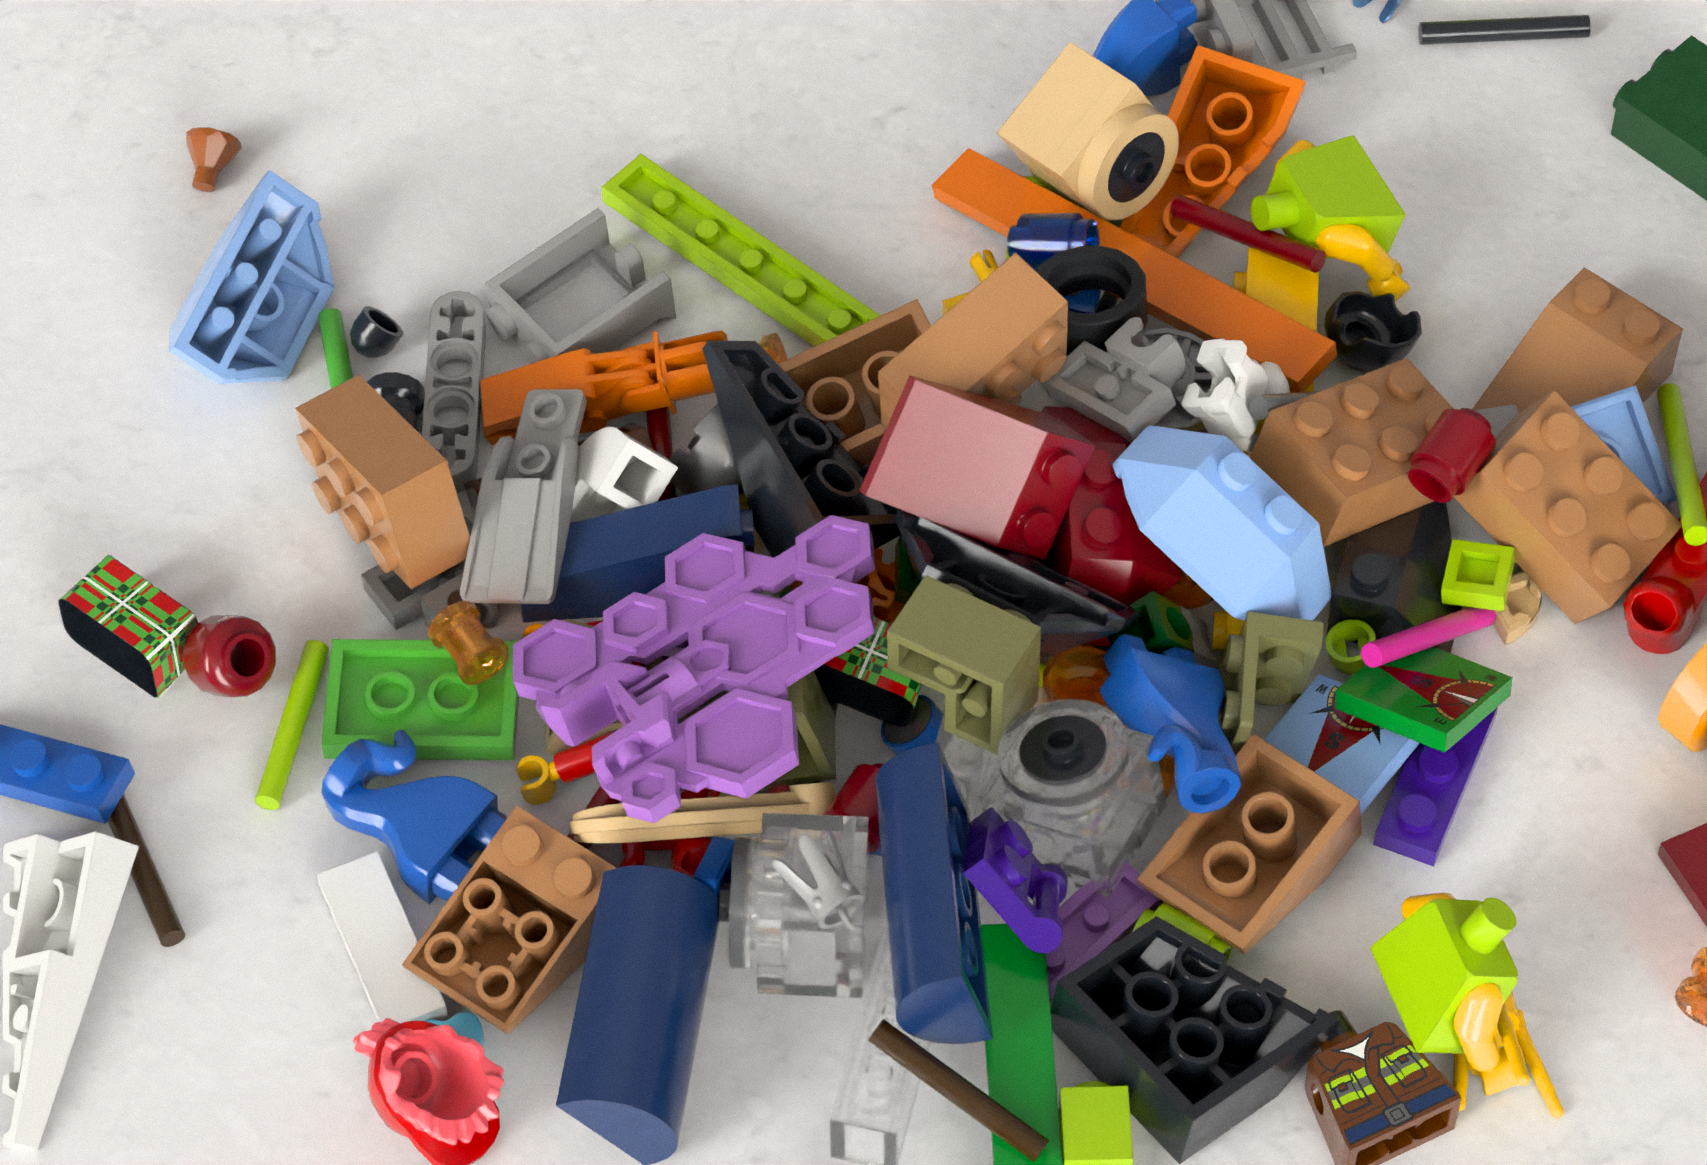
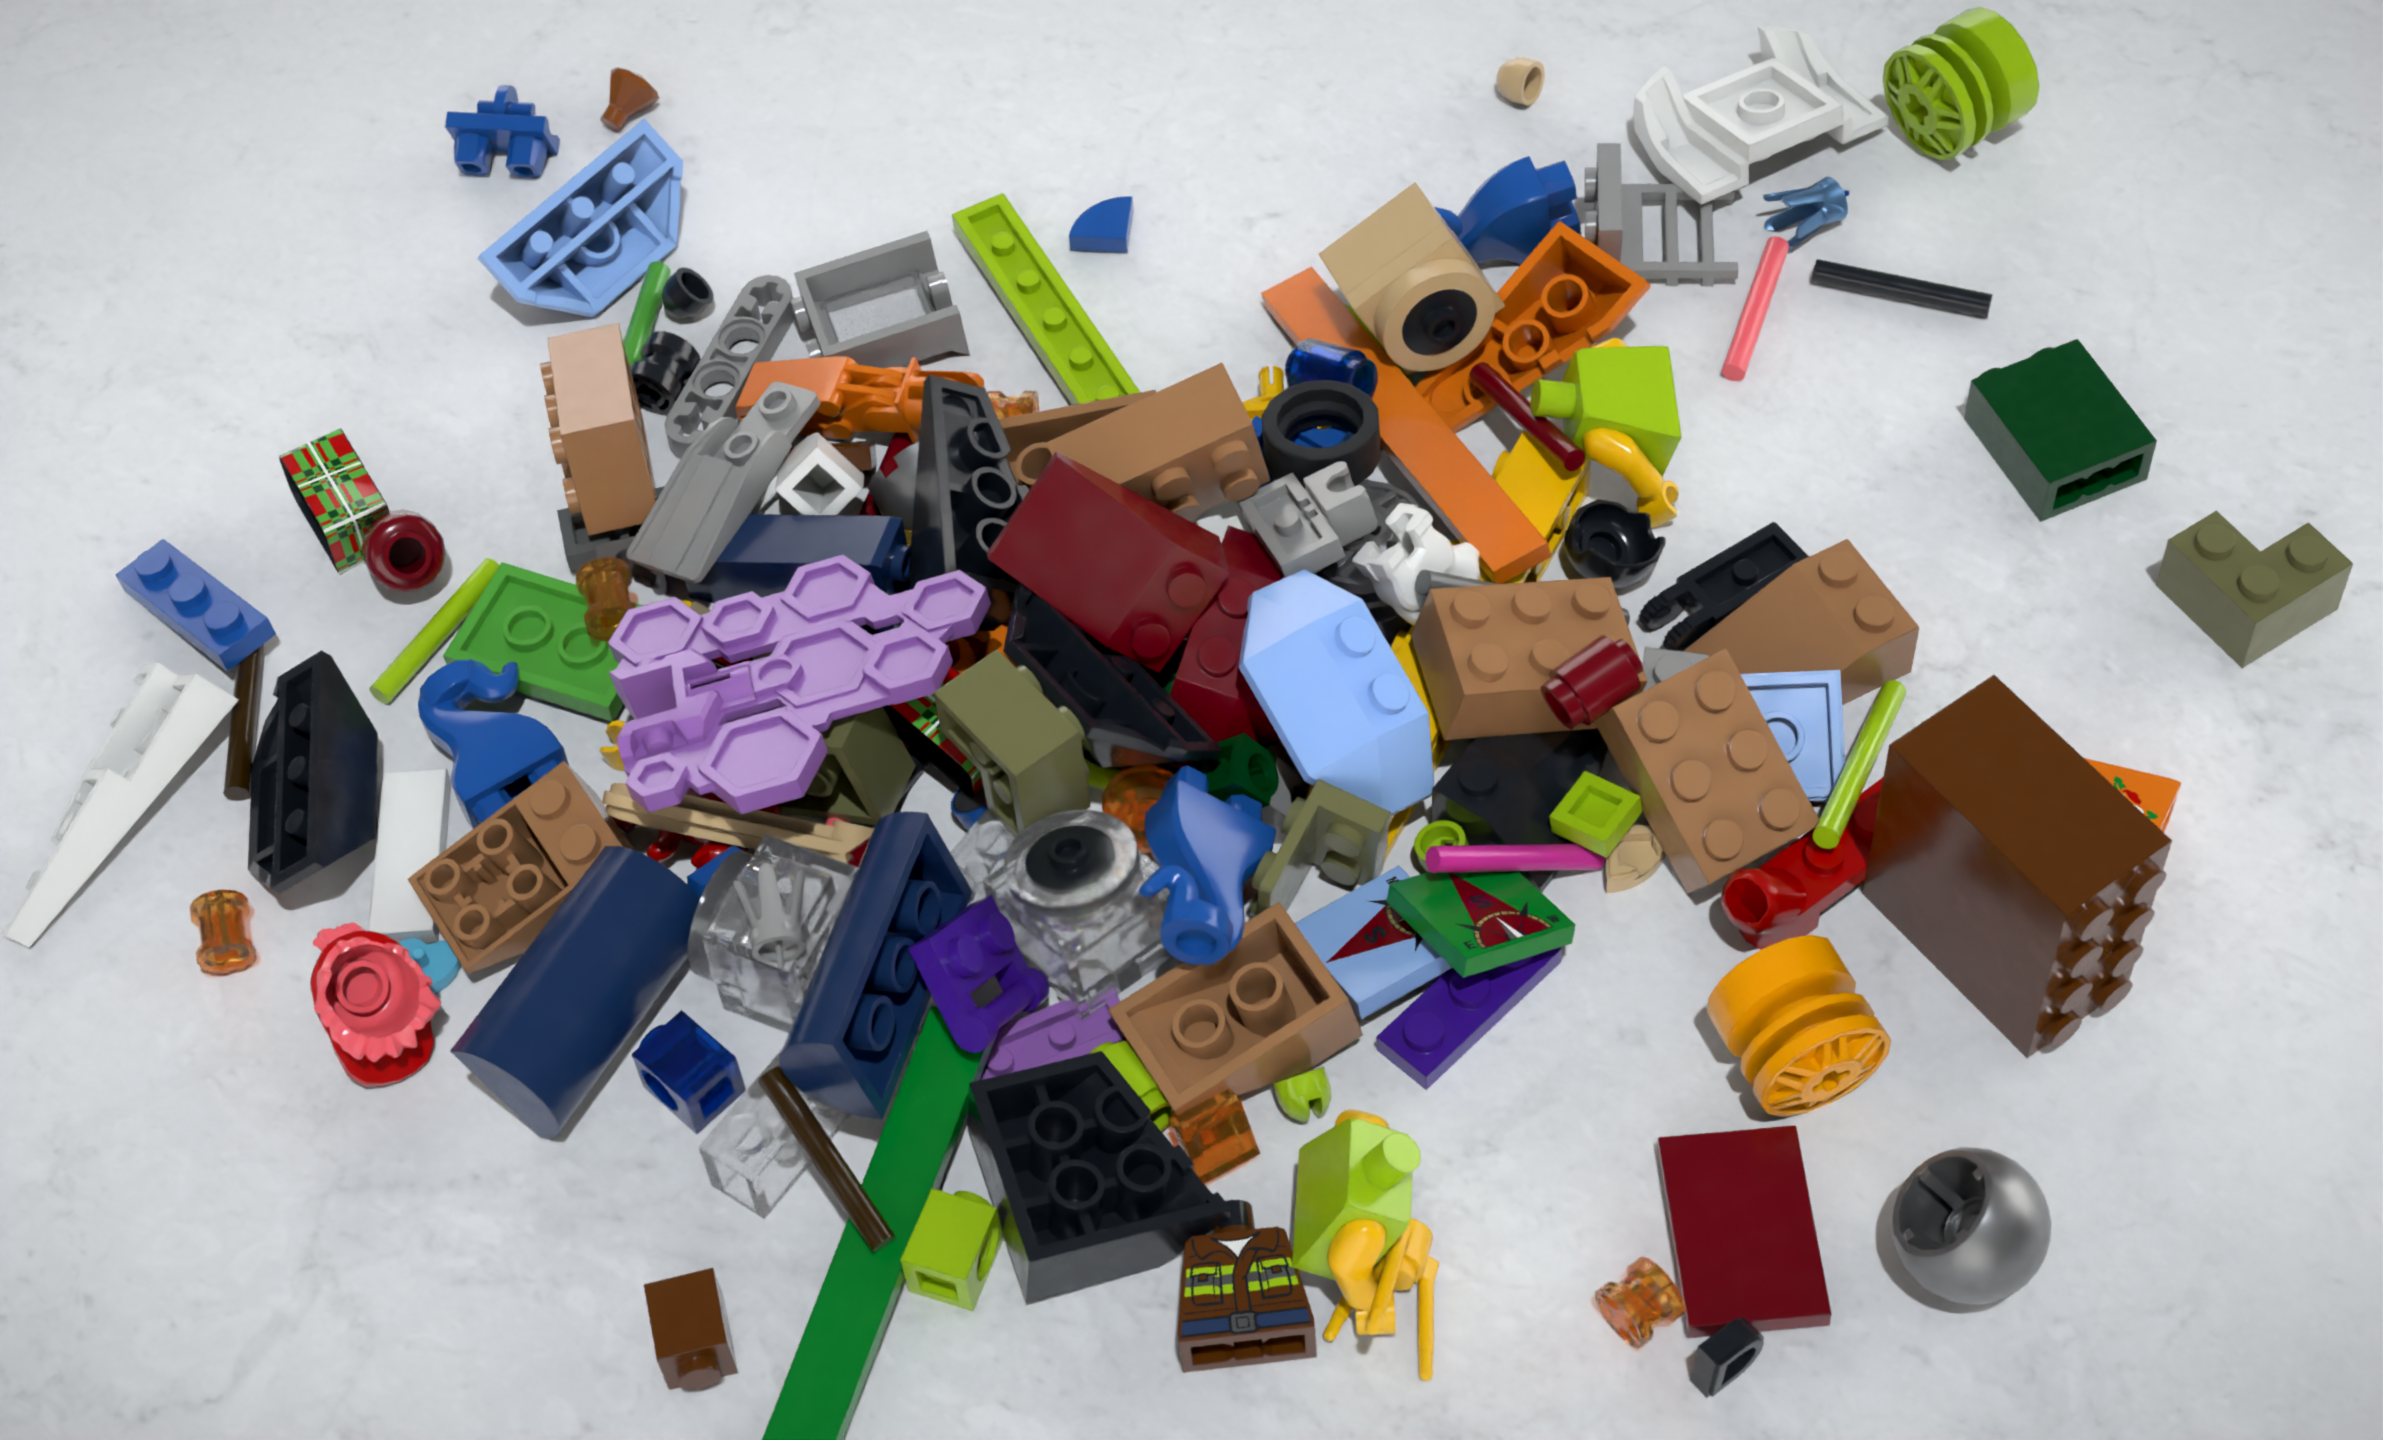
camera: 25 degrees right, 0 degrees up
(105, 217) = (501, 127): none -> blue hips
(238, 1072) = (222, 932): none -> clear orange bush
(252, 902) = (311, 776): none -> black wedge
(748, 161) = (1104, 226): none -> blue tile
(765, 1057) = (688, 1071): none -> clear blue brick
(1280, 956) = (1215, 1135): none -> clear orange tile
(1336, 901) = (1302, 1091): none -> lime hinge
(1385, 82) = (1755, 309): none -> coral bar
(1487, 337) = (1721, 585): none -> black hinge

